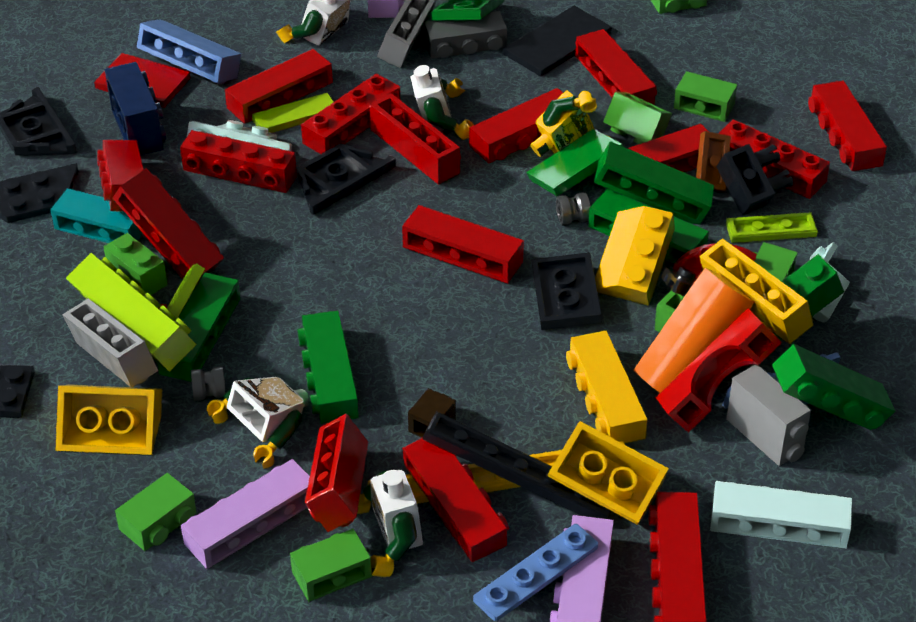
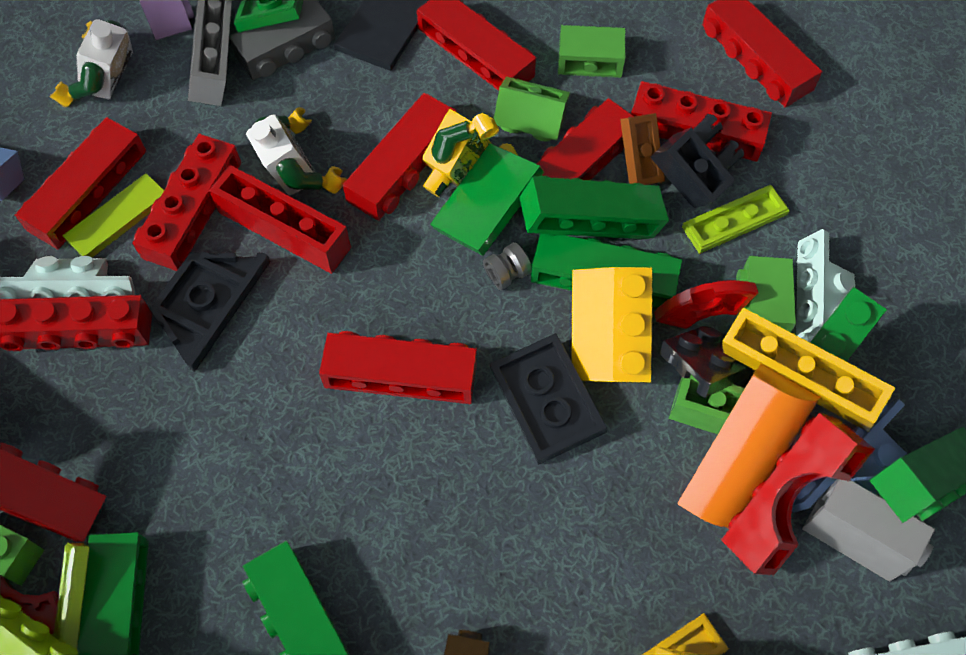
camera: 20 degrees left, 20 degrees up
(606, 387) = (656, 540): yellow brick -> none

